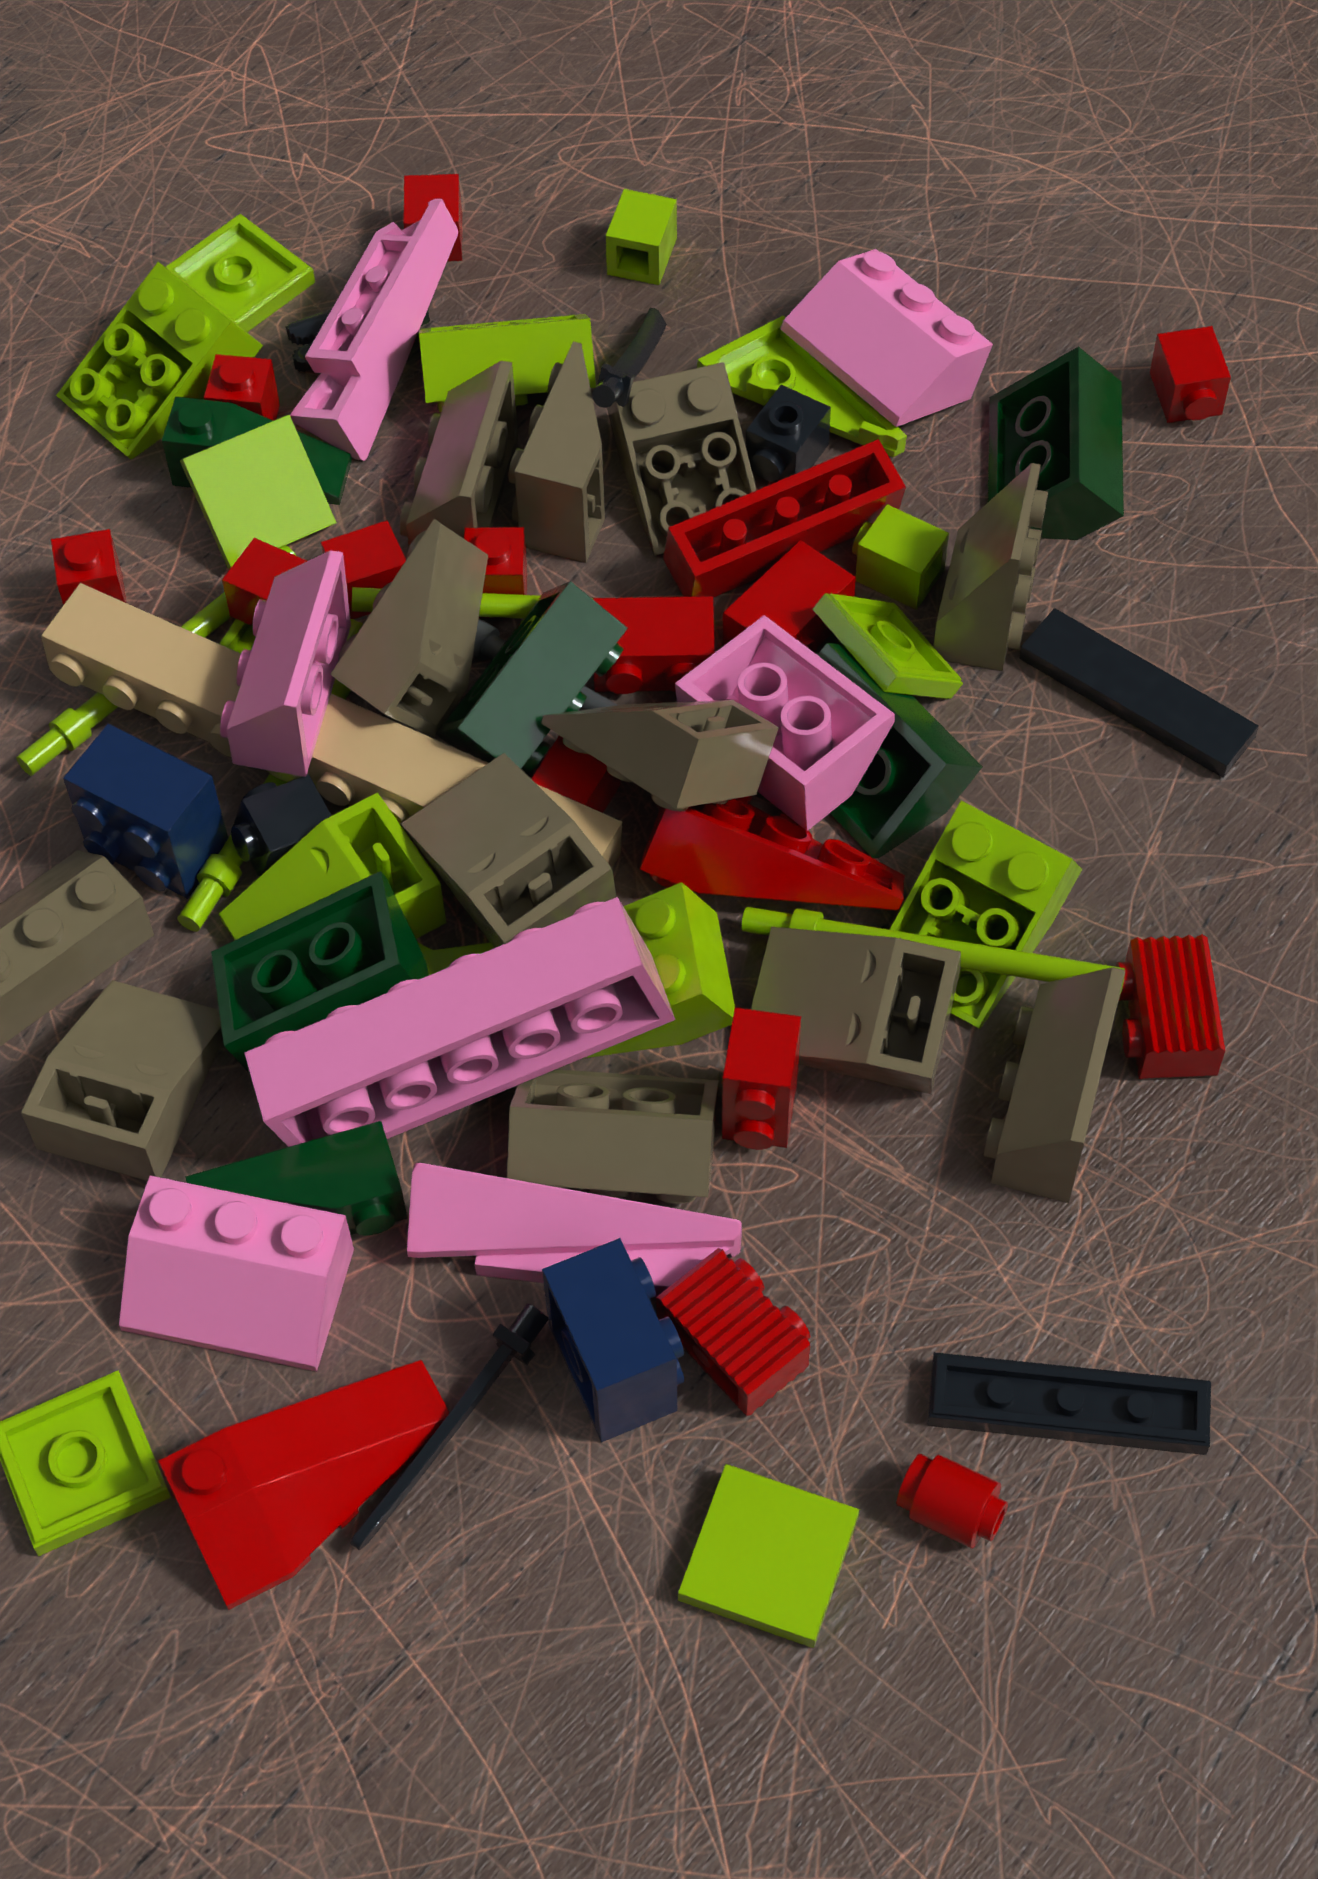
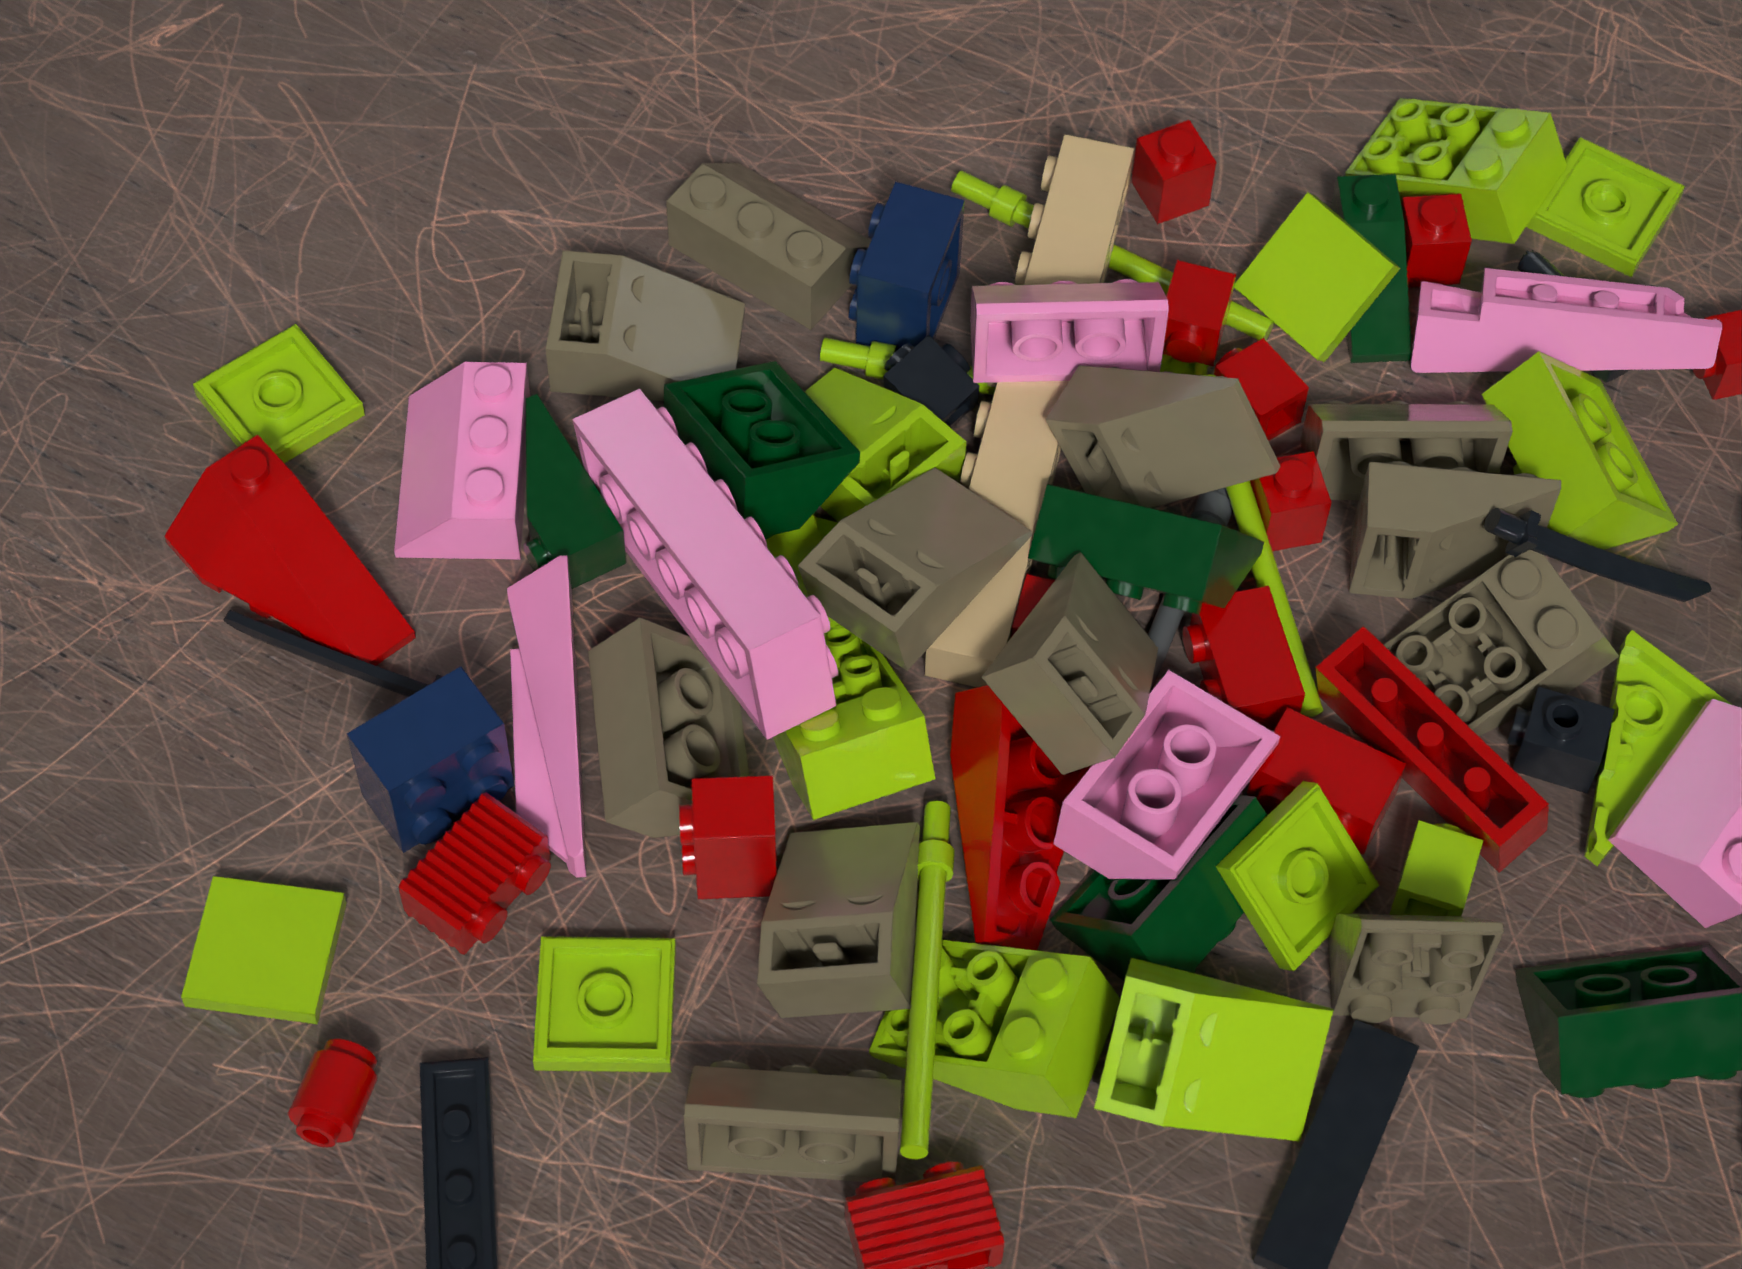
camera: 75 degrees right, 0 degrees up
(889, 1243) = (605, 1004): none -> lime tile
(1048, 754) = (1211, 1055): none -> lime slope

